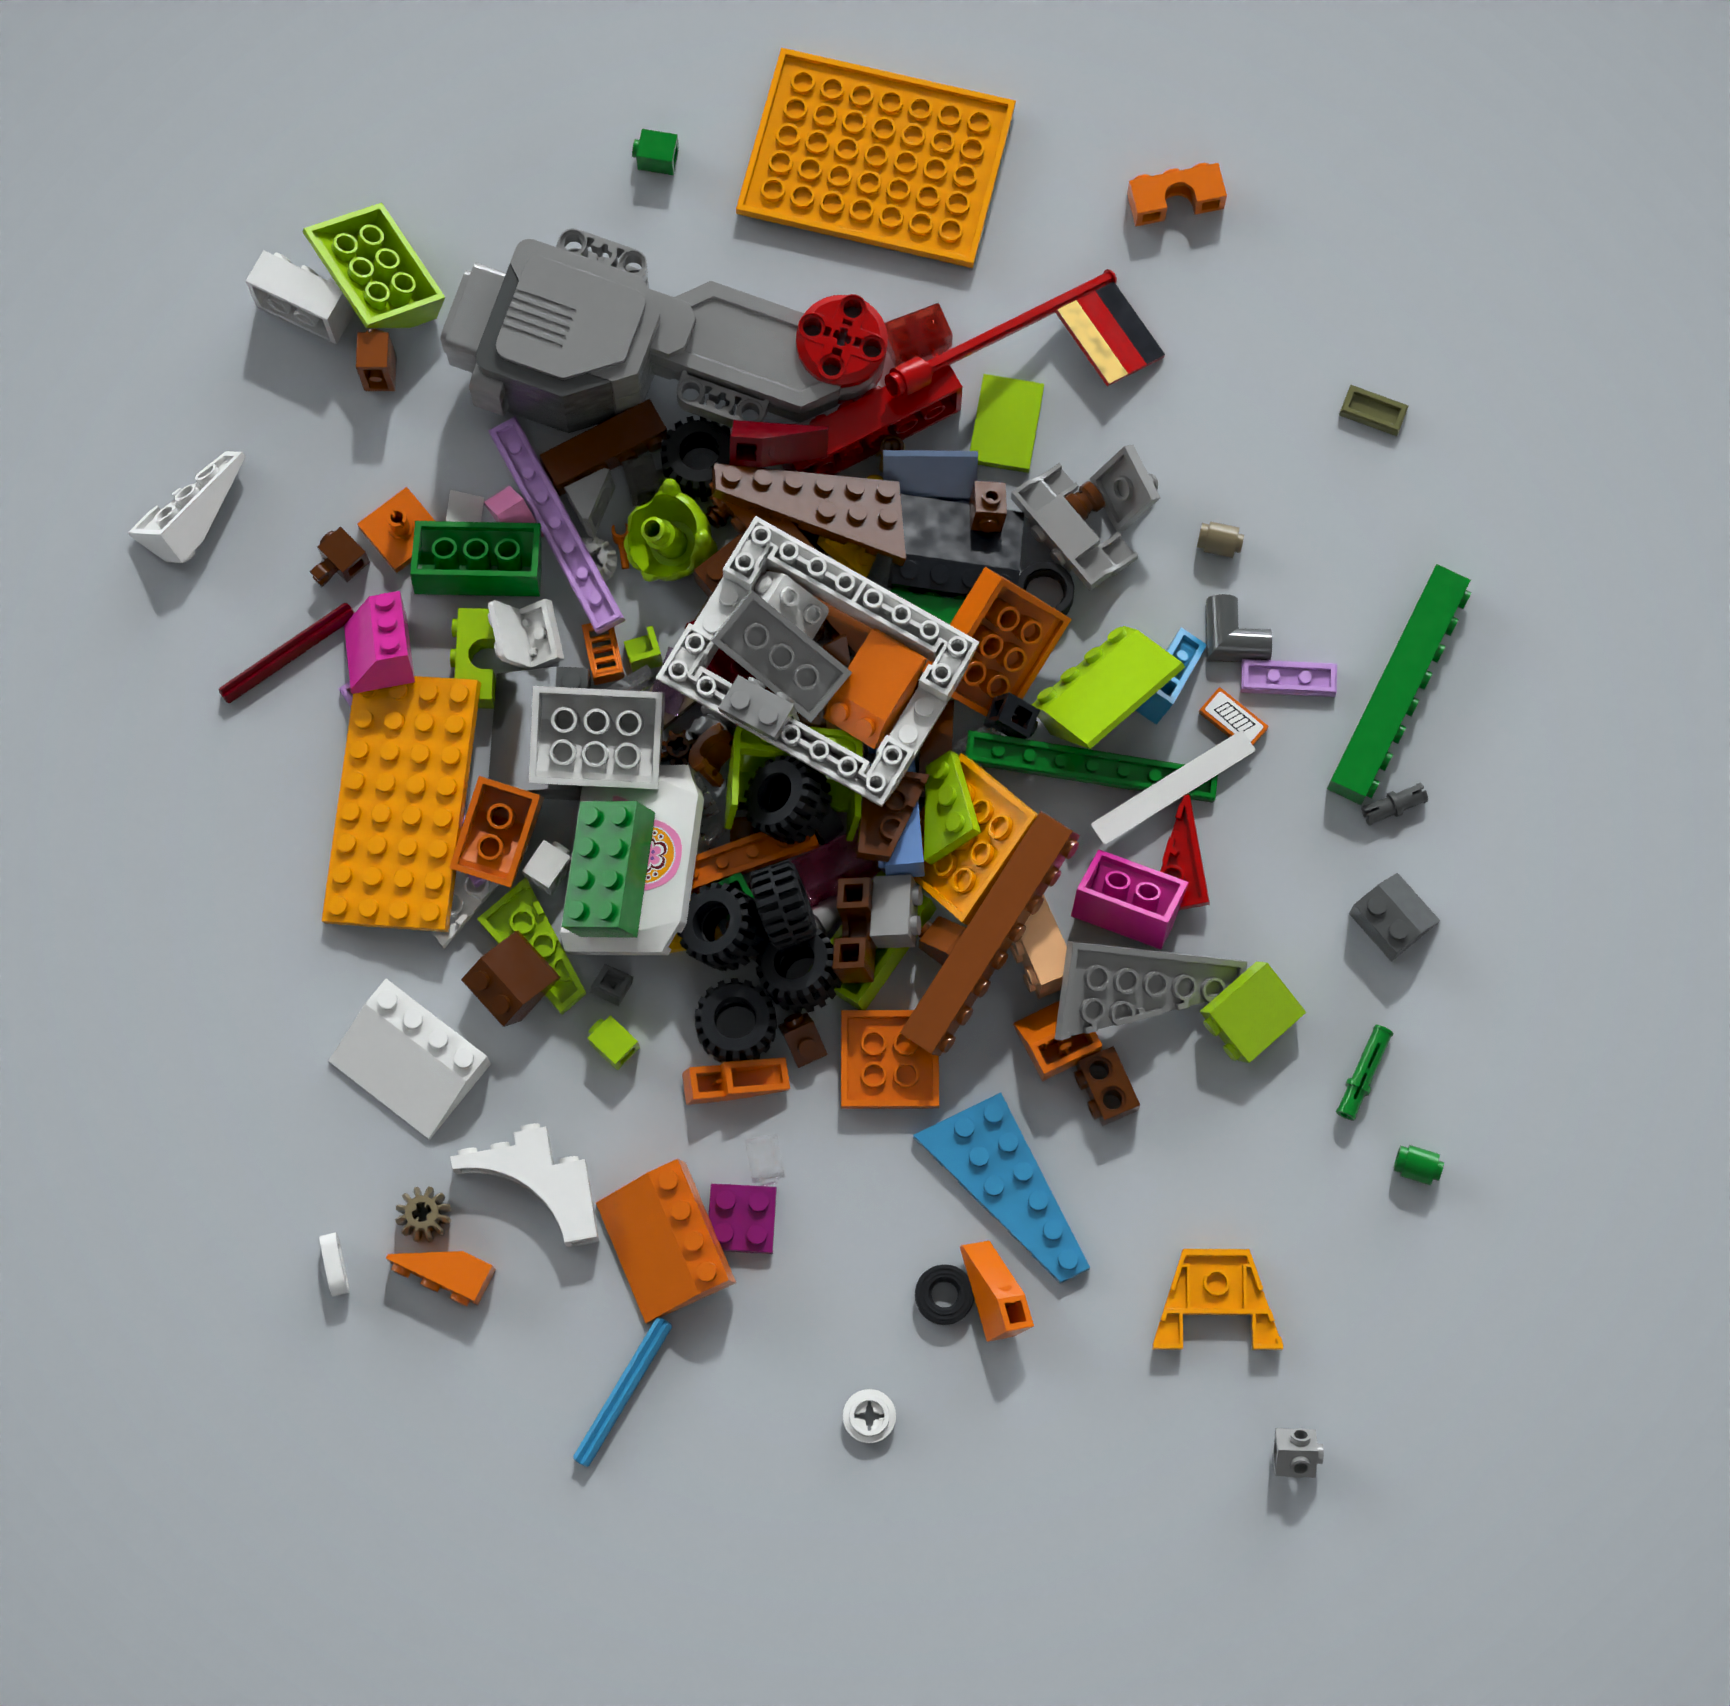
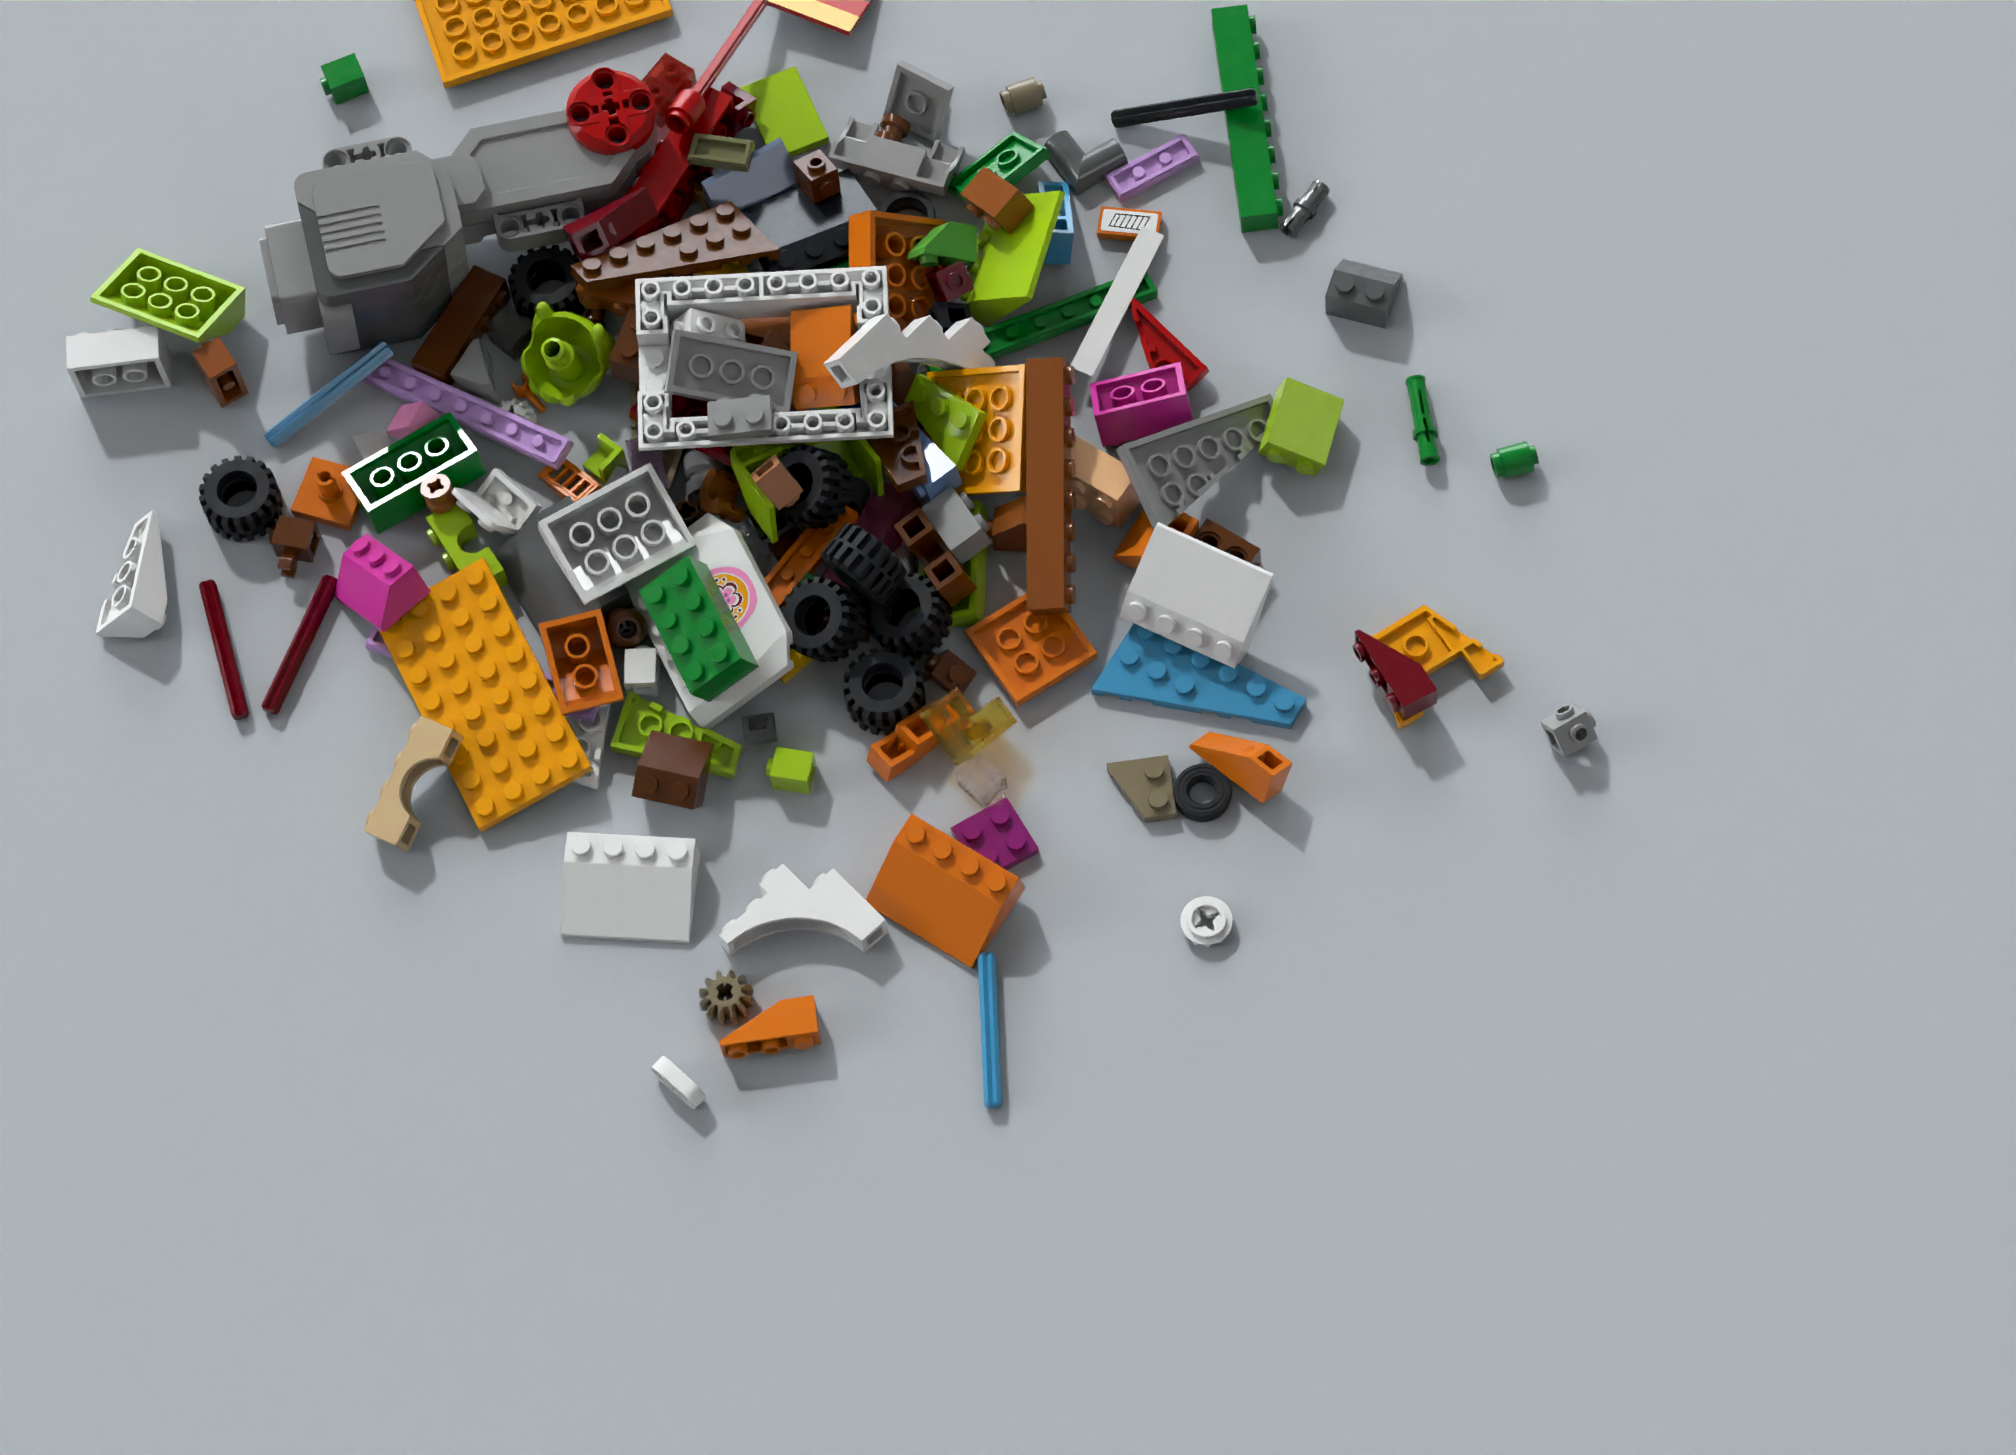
camera: 25 degrees left, 10 degrees down
(222, 616) = (223, 649): none -> dark red axle
(257, 866) = (427, 747): none -> tan arch
(317, 465) = (233, 478): none -> black tyre
(455, 438) = (328, 394): none -> dark azure axle
(477, 602) = (437, 493): none -> dark orange wheel
(558, 819) = (636, 631): none -> reddish brown head
(755, 783) = (777, 483): none -> nougat brick
(776, 1109) = (961, 728): none -> clear yellow brick
(902, 1256) = (1147, 786): none -> dark tan wing
(917, 434) = (721, 152): none -> olive tile
(928, 715) = (922, 342): none -> white arch
(972, 394) = (744, 110): none -> dark red bracket
(1035, 683) = (949, 282): none -> dark red bracket
(1052, 1117) = (1197, 595): none -> white slope
(1056, 644) = (947, 245): none -> bright green slope
(1123, 633) = (996, 200): none -> dark orange brick
(1151, 596) = (1010, 159): none -> green tile
(1180, 1311) = (1401, 678): none -> dark red slope
(1351, 643) = (1184, 107): none -> black axle

